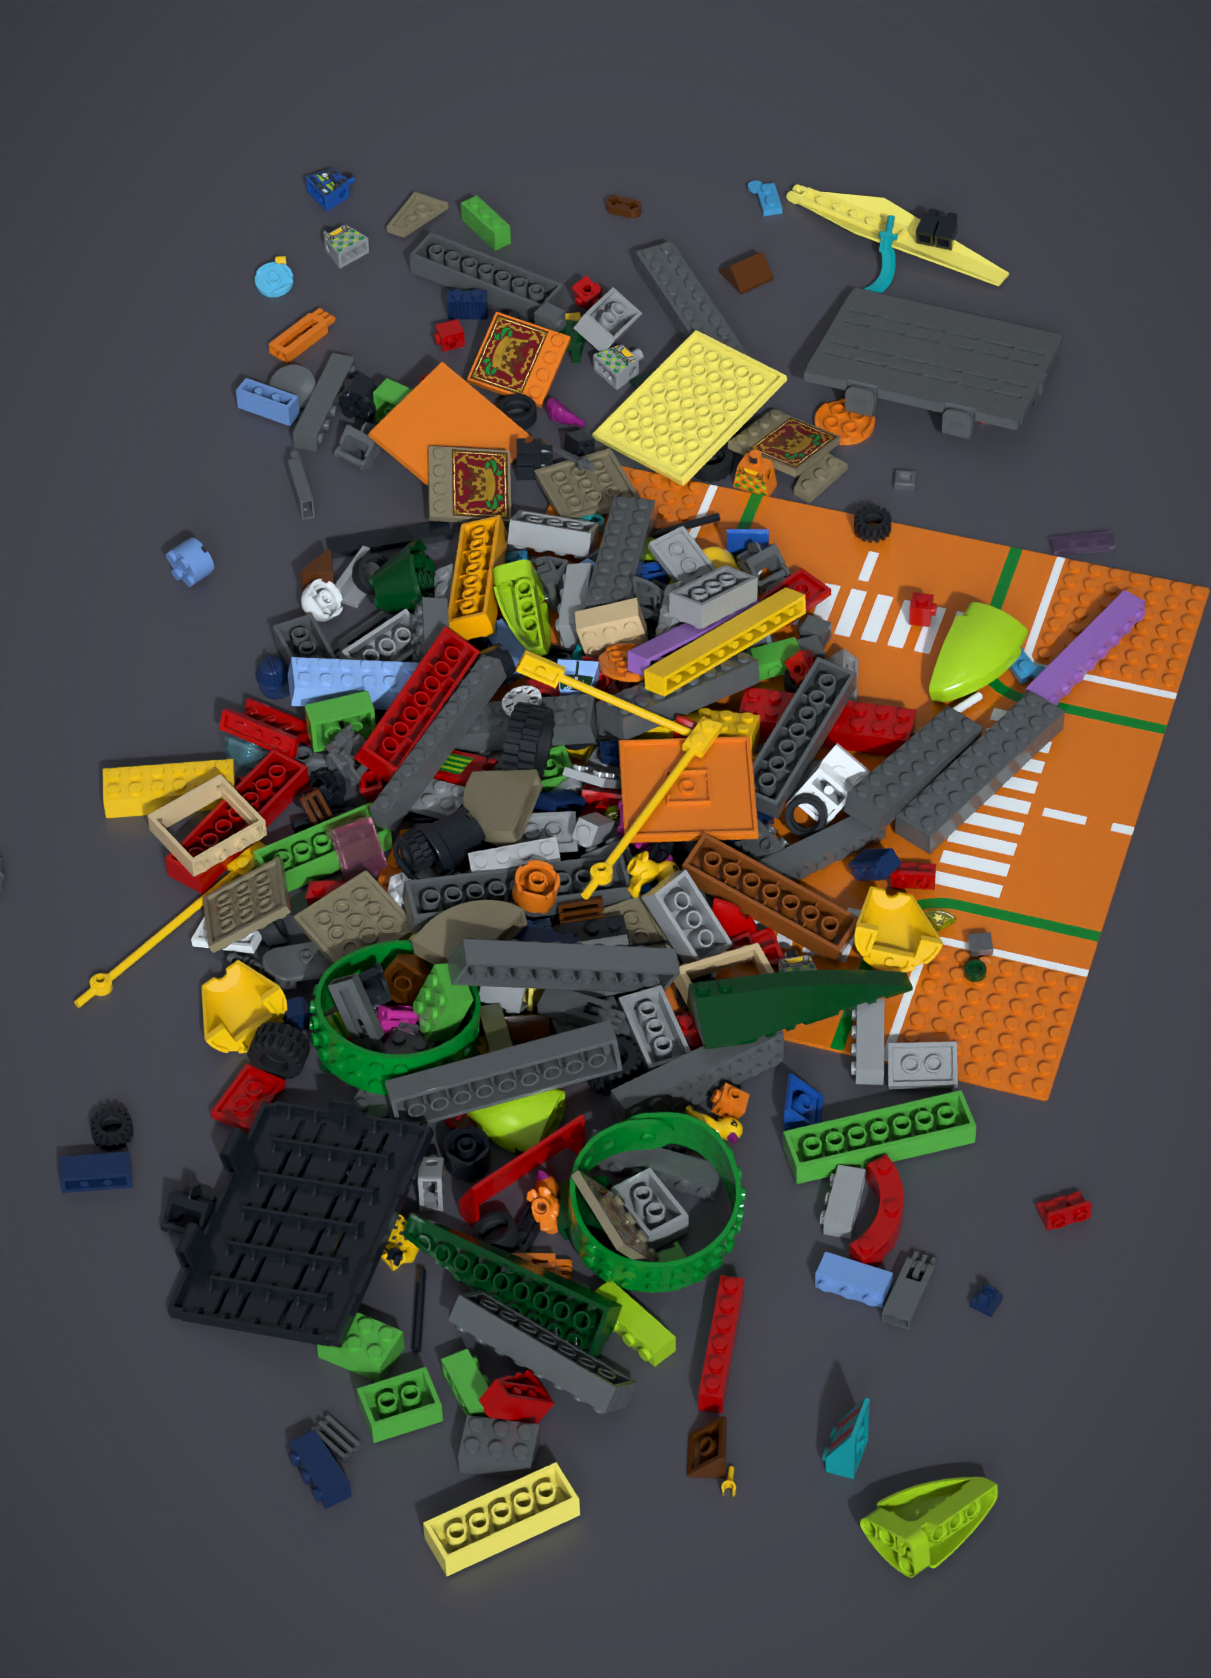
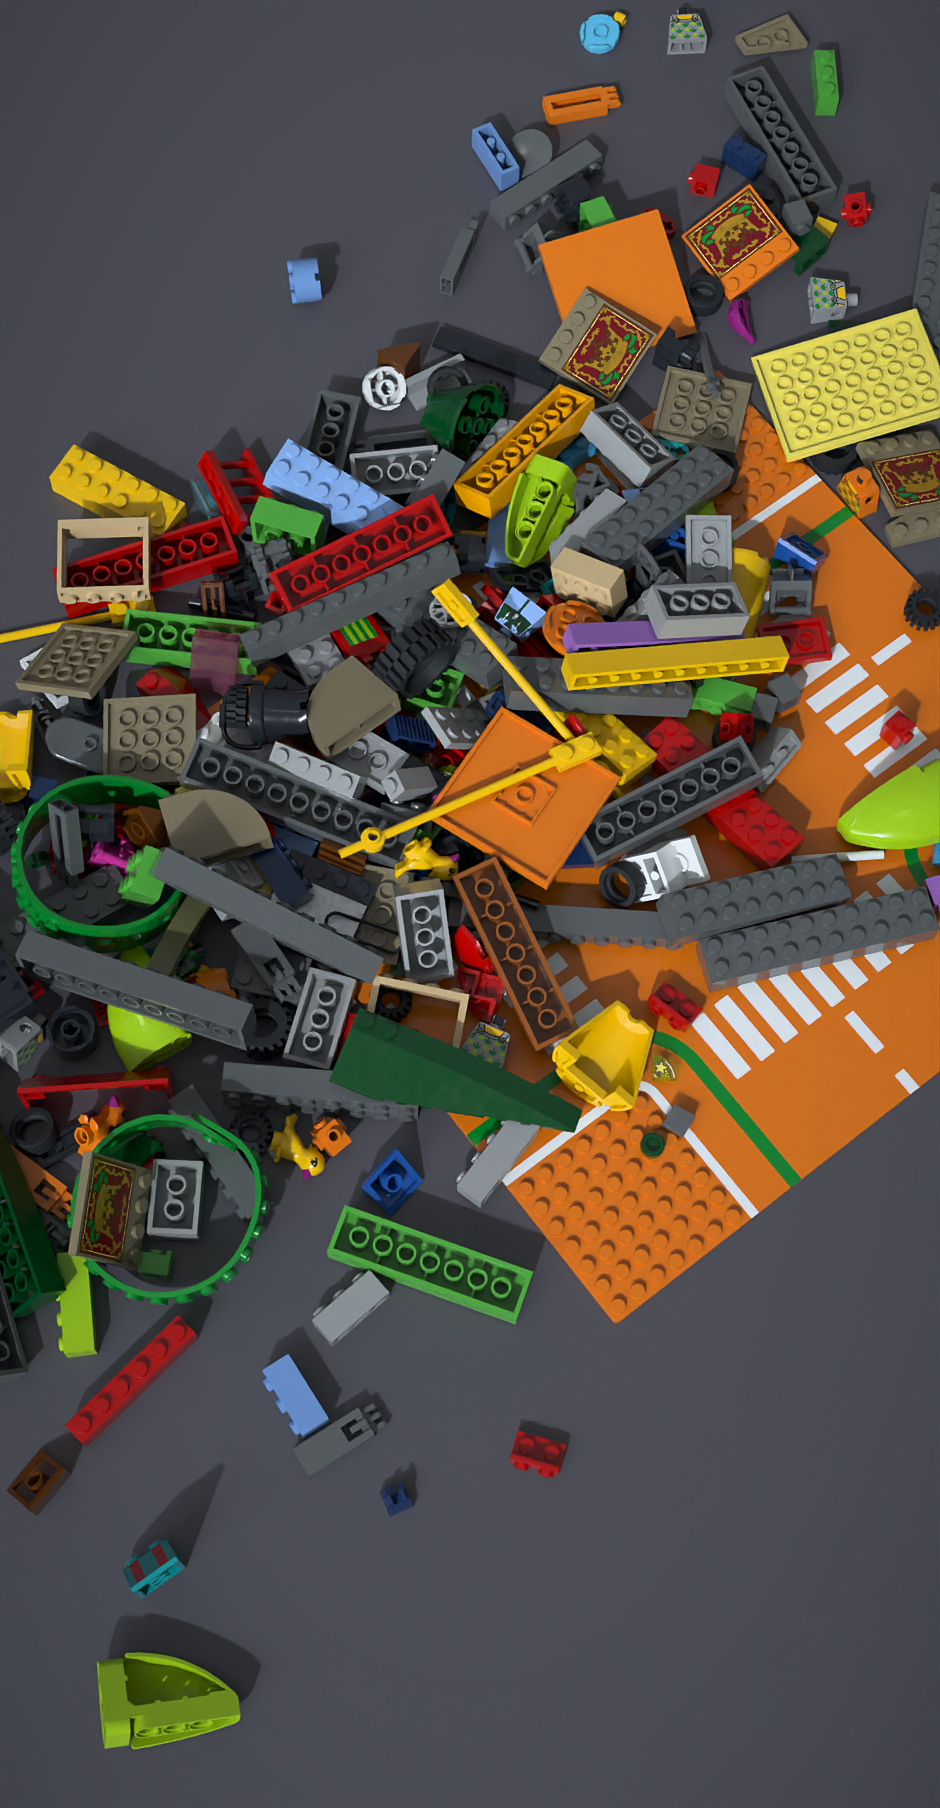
camera: 30 degrees right, 20 degrees up
(273, 677) = (292, 428): dark blue piece -> none
(527, 1026) = (217, 939): reddish brown slope -> none
(535, 887) = (306, 803): orange brick -> none
(579, 443) = (728, 362): black brick -> none
(607, 320) = (848, 249): light grey brick -> none
(688, 525) = (756, 505): black bar -> none
(729, 1483) = (34, 1525): yellow hand -> none
(765, 845) = (567, 888): dark grey bracket -> none
(874, 864) = (641, 977): dark blue brick -> none
(887, 1225) = (375, 1354): red brick -> none
(922, 1065) = (527, 1215): light grey plate -> none

